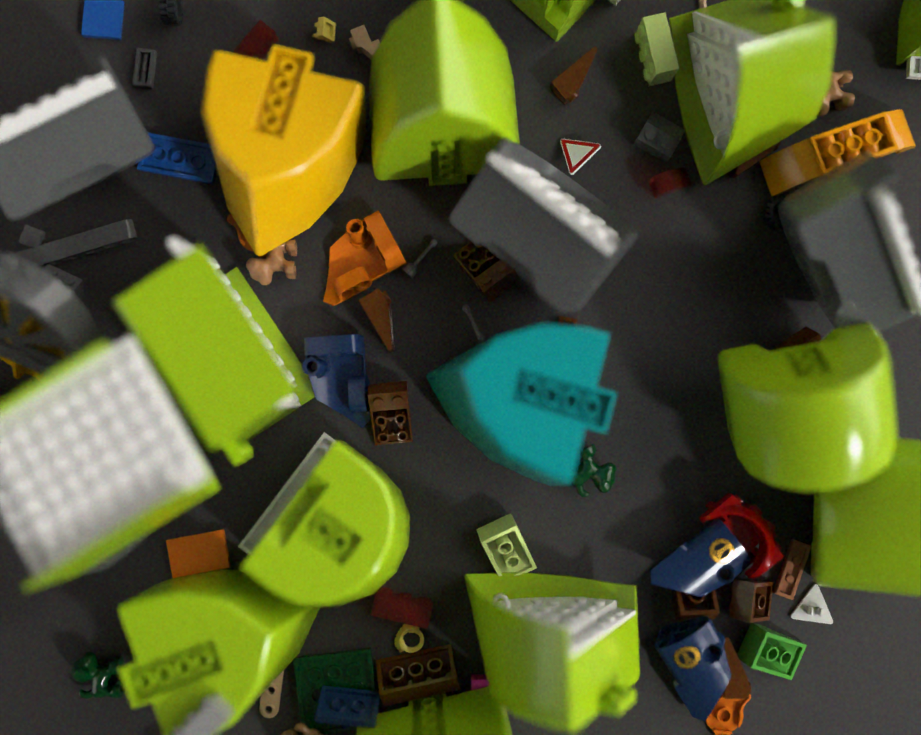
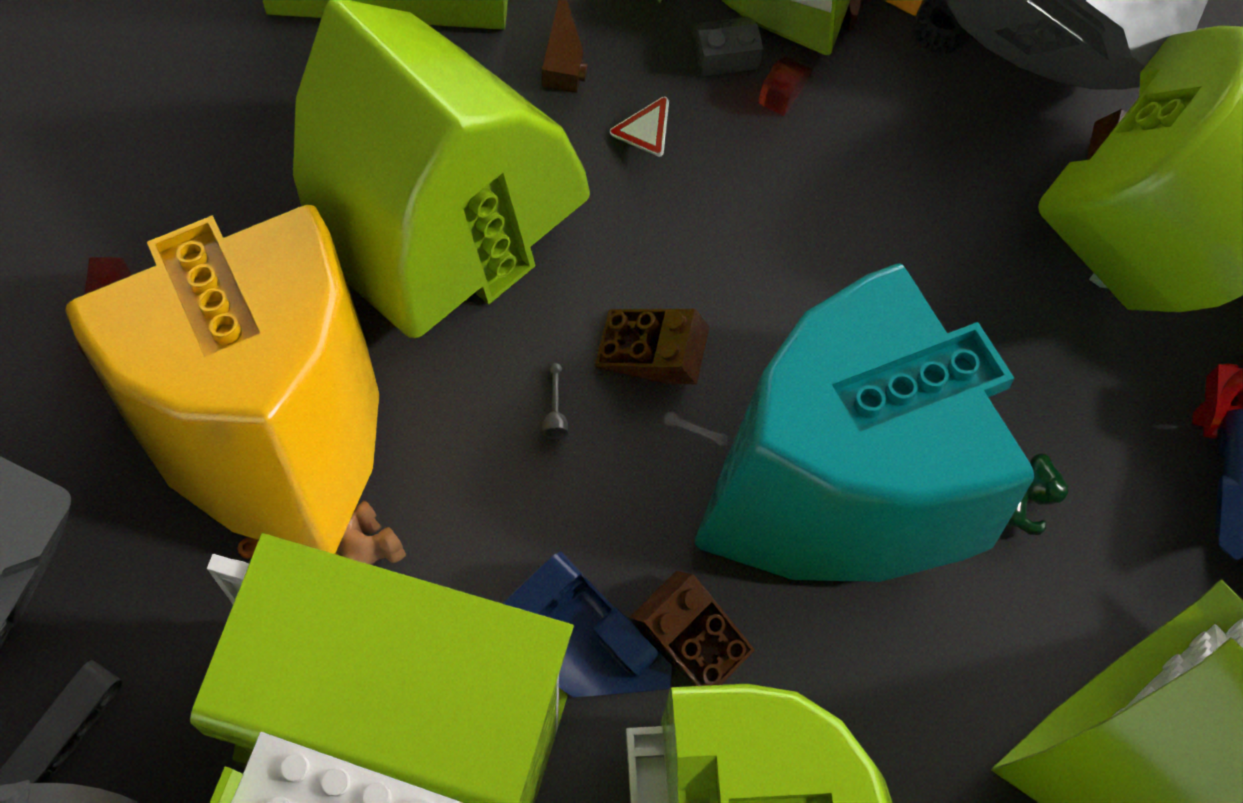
camera: 45 degrees left, 20 degrees down
(180, 159) = (112, 522): blue plate -> none
(325, 29) = (186, 211): light yellow tile -> none
(361, 41) = (258, 196): tan slope -> none
(361, 258) = (475, 456): orange panel -> none
(380, 313) = (567, 507): reddish brown slope -> none
(506, 546) = (1007, 683): yellowish green slope -> none
(543, 225) = (697, 214): dark grey piece -> none

